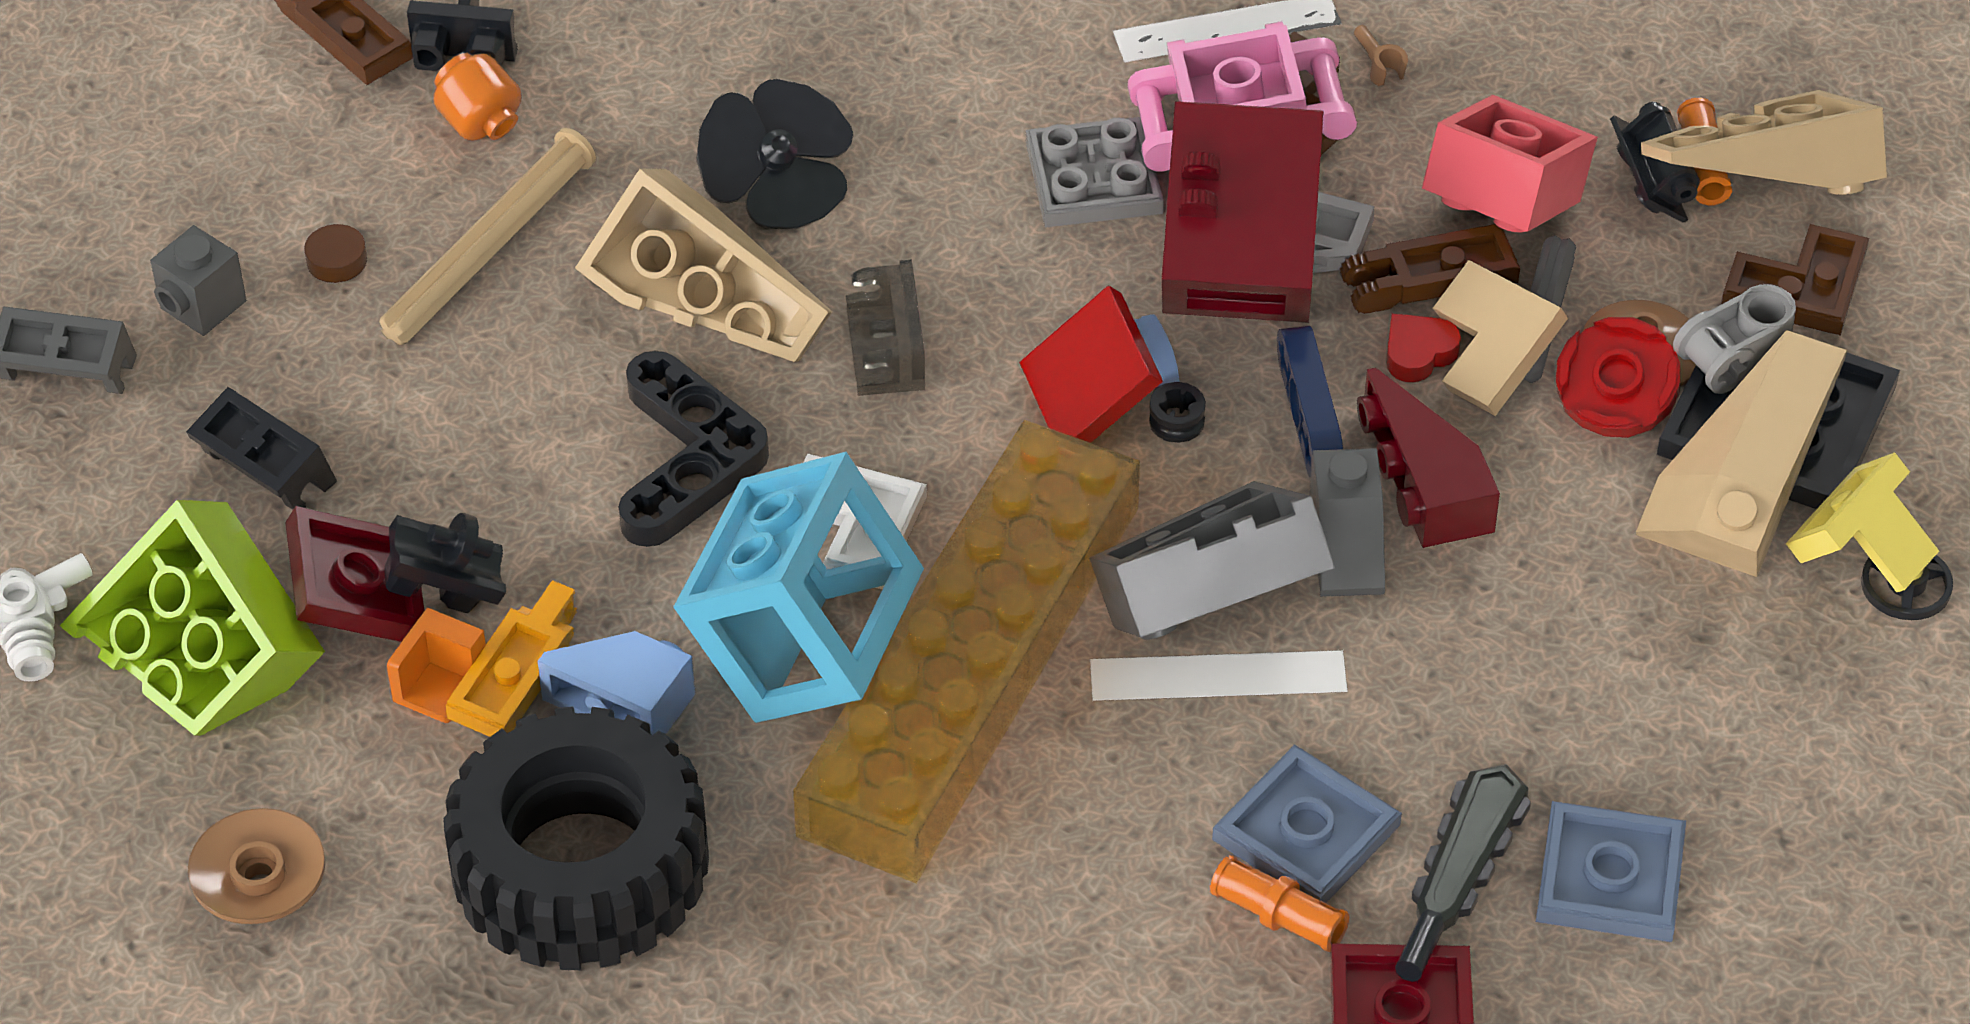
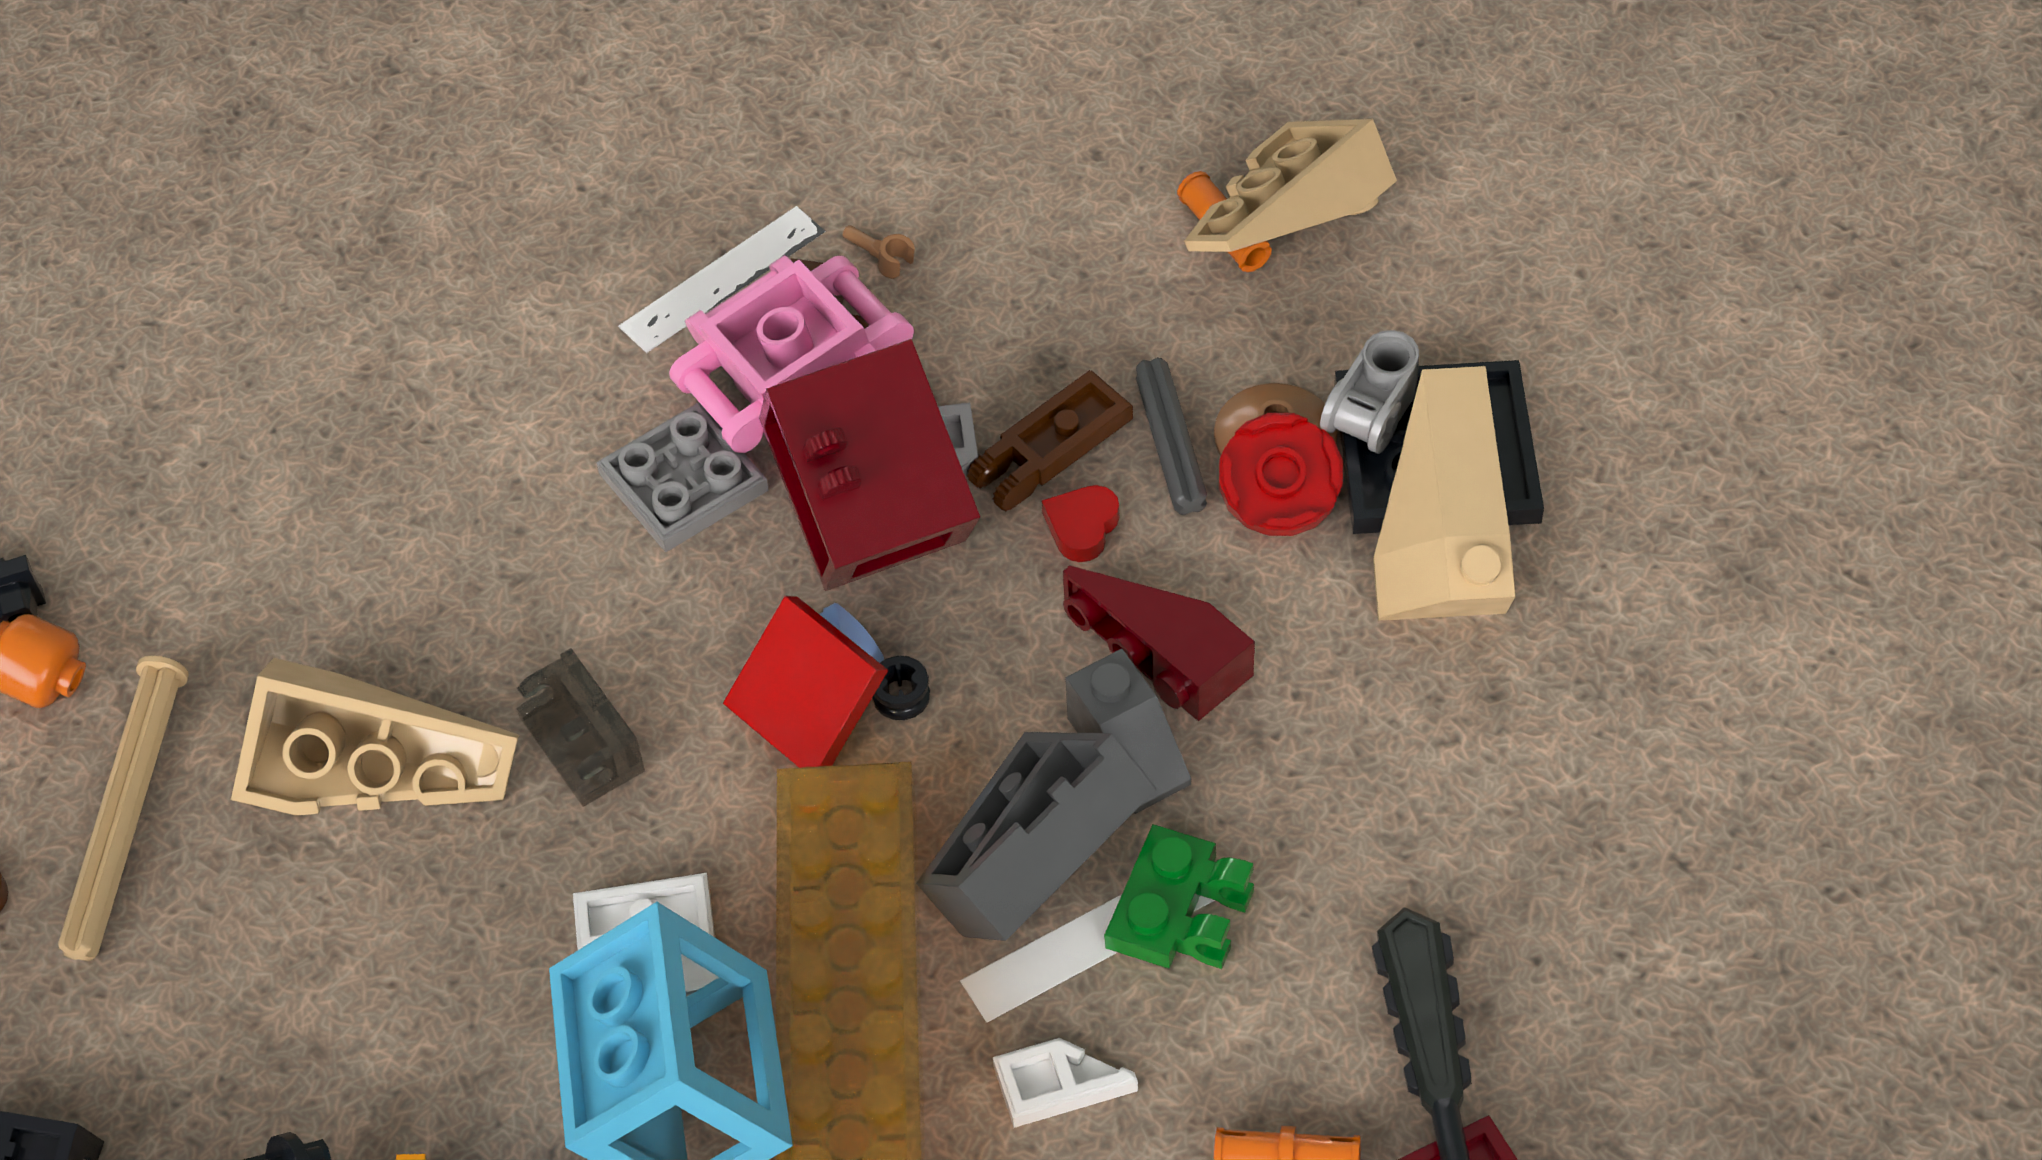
camera: 25 degrees left, 5 degrees up
(705, 451) = (471, 941): black beam -> none
(762, 140) = (354, 582): black piece -> none
(1122, 766) = (1056, 1080): none -> white tile
(1299, 665) = (1163, 892): none -> green plate
(1307, 392) = (1017, 620): dark blue beam -> none
(1307, 825) = (1261, 1059): sand blue tile -> none
(1508, 163) = (1071, 309): coral brick -> none
(1508, 331) = (1165, 472): tan tile -> none
(1611, 871) = (1558, 970): sand blue tile -> none
(1659, 183) = (1205, 272): black hinge -> none
(1819, 283) = (1391, 301): reddish brown tile -> none
(1894, 541) = (1578, 513): light yellow piece -> none

